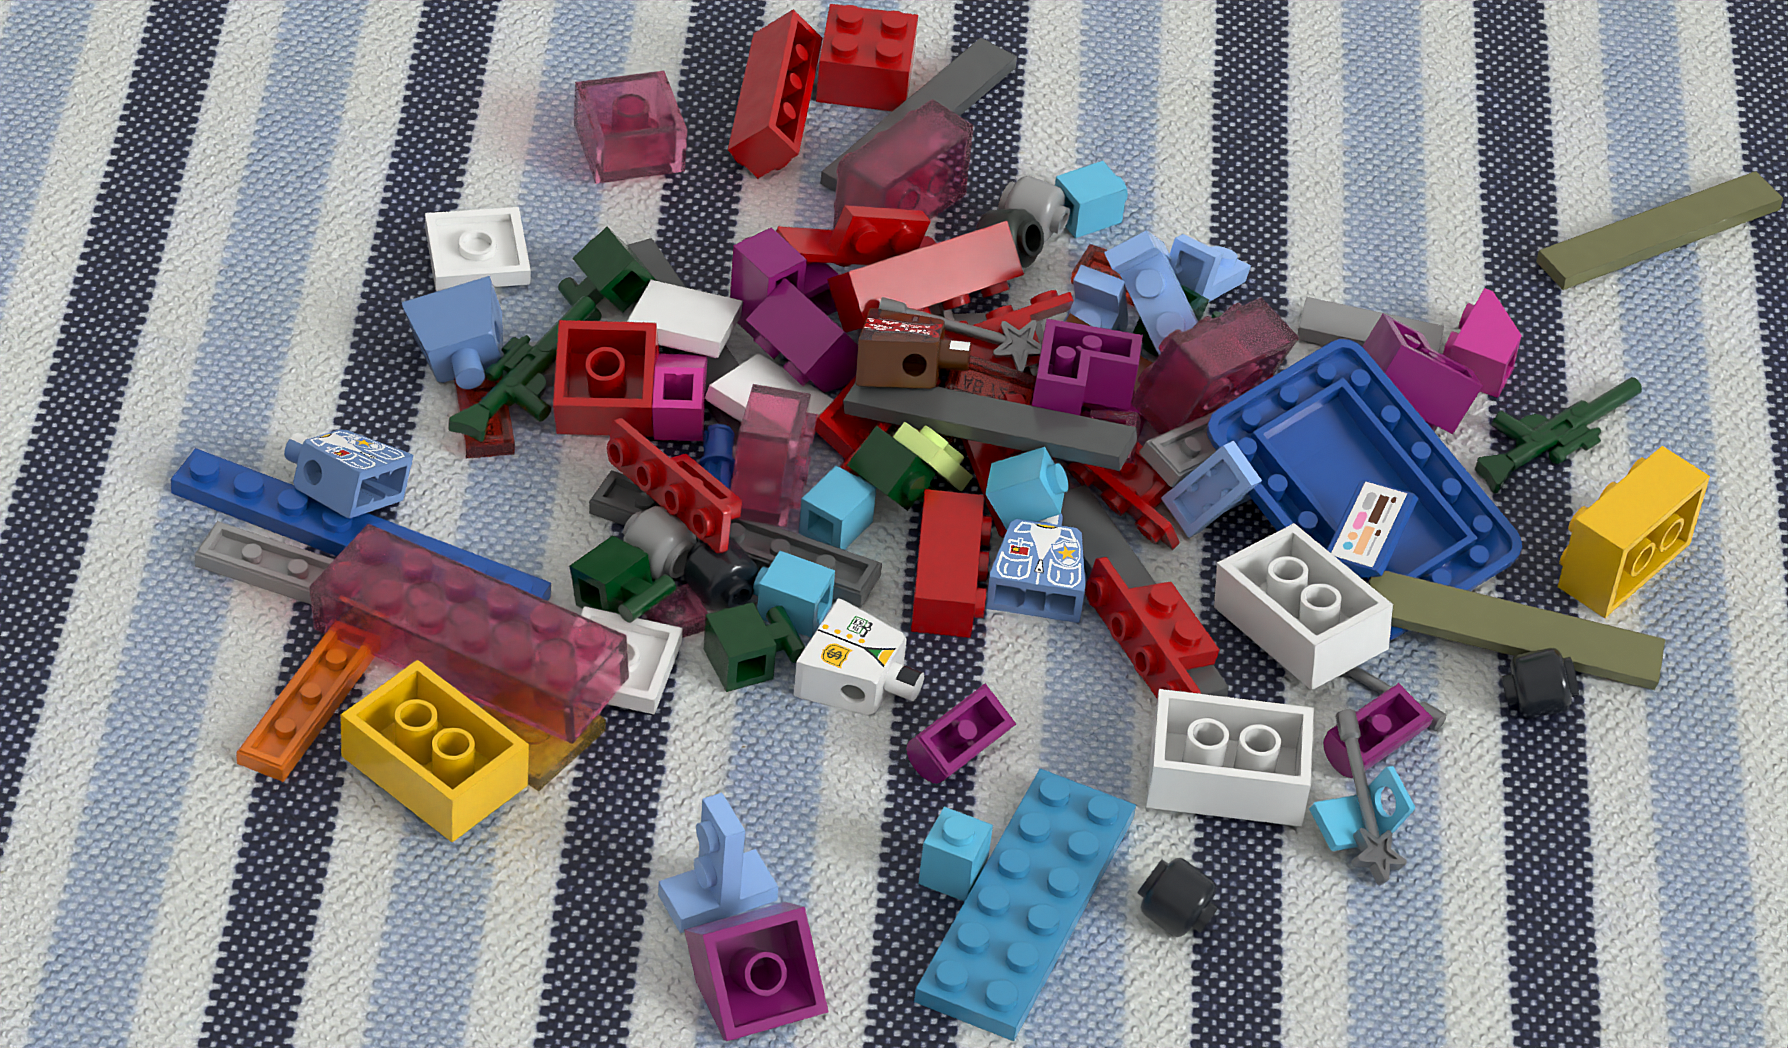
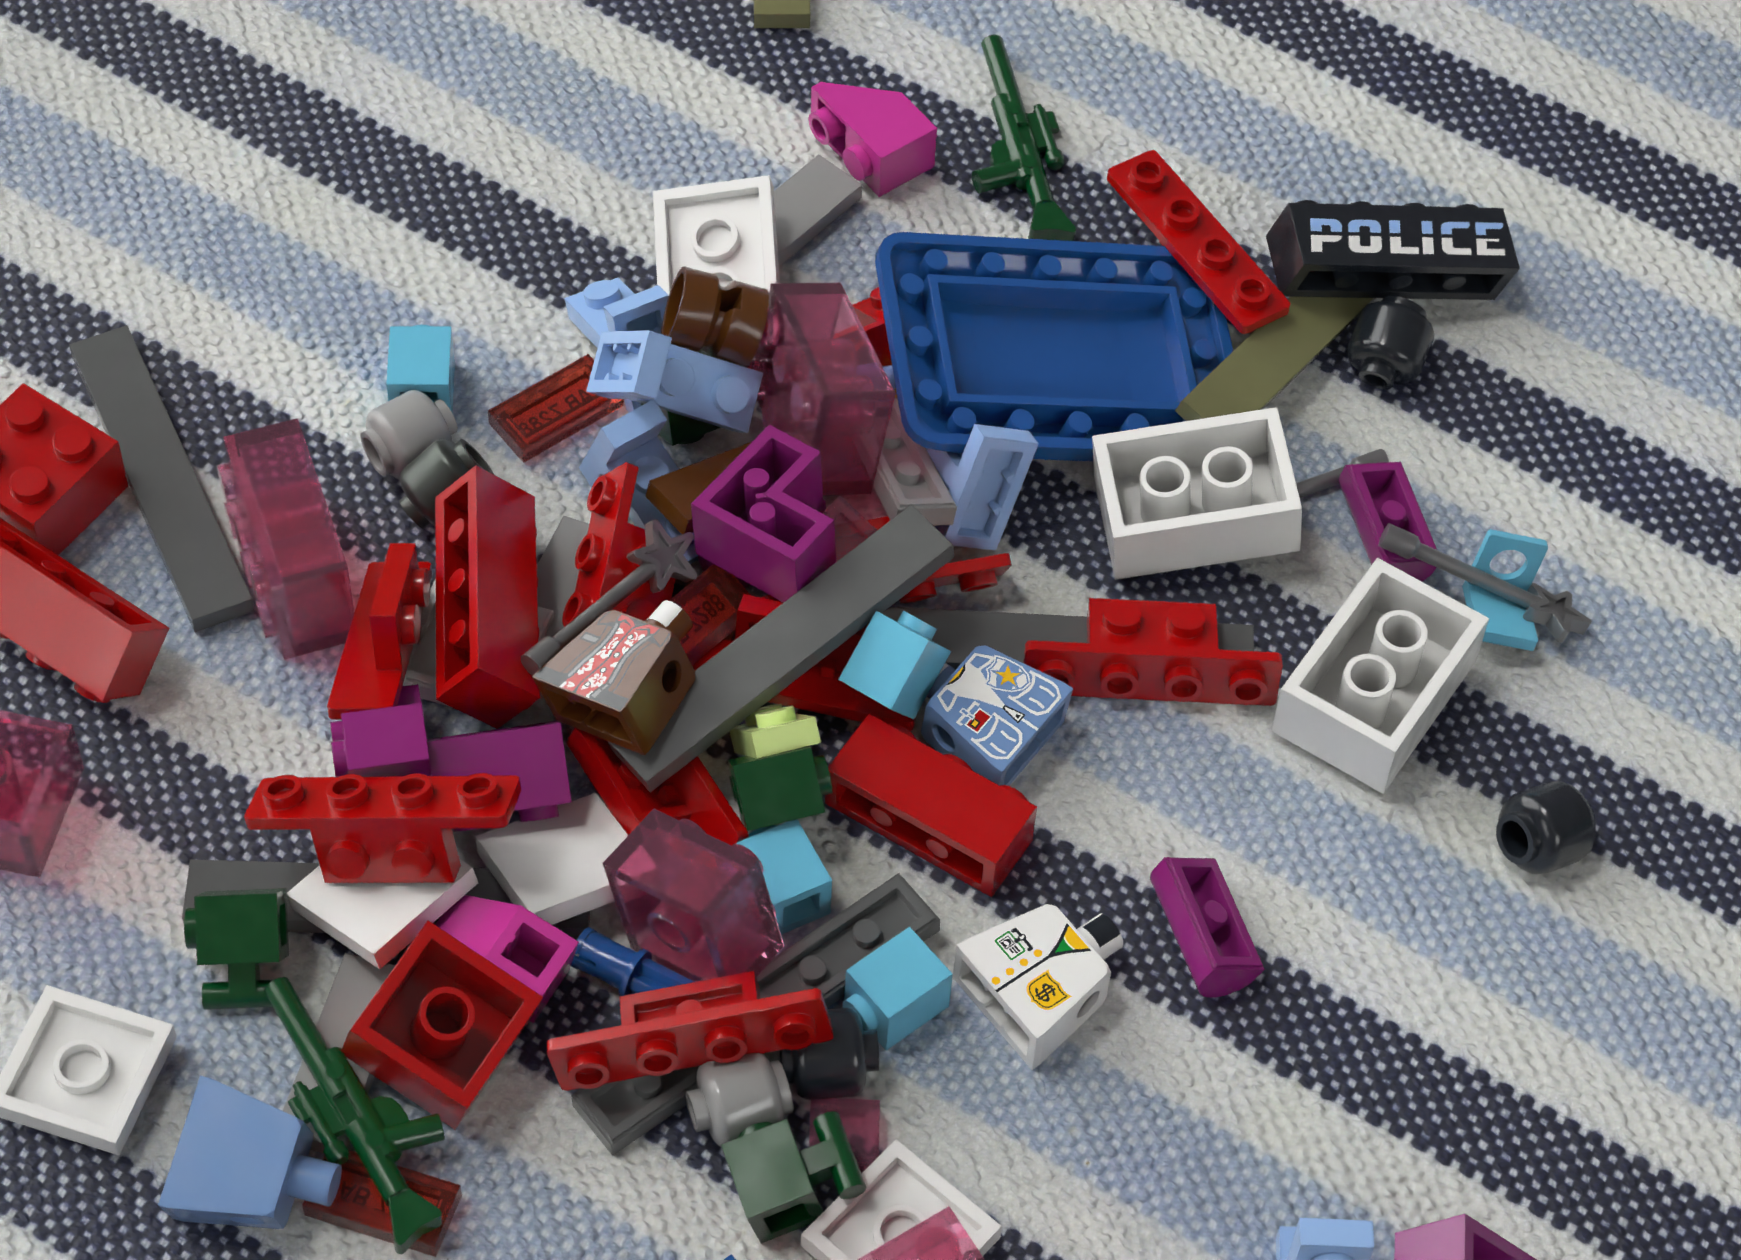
camera: 60 degrees left, 10 degrees up
(712, 279) = (384, 825): none -> red bracket
(746, 648) = (951, 1080): dark green brick -> none
(955, 853) = (1392, 1017): medium azure brick -> none
(1025, 905) = (1474, 984): dark azure plate -> none
(1211, 278) = (715, 316): none -> reddish brown wheel
(1306, 291) = (718, 230): none -> white plate
(1371, 527) = (1145, 368): slope -> none
(1430, 381) = (927, 199): magenta brick -> none
(1525, 537) = (1198, 242): none -> red bracket
(1613, 645) = (1391, 251): none -> black brick
(1632, 530) = (1236, 142): yellow brick -> none

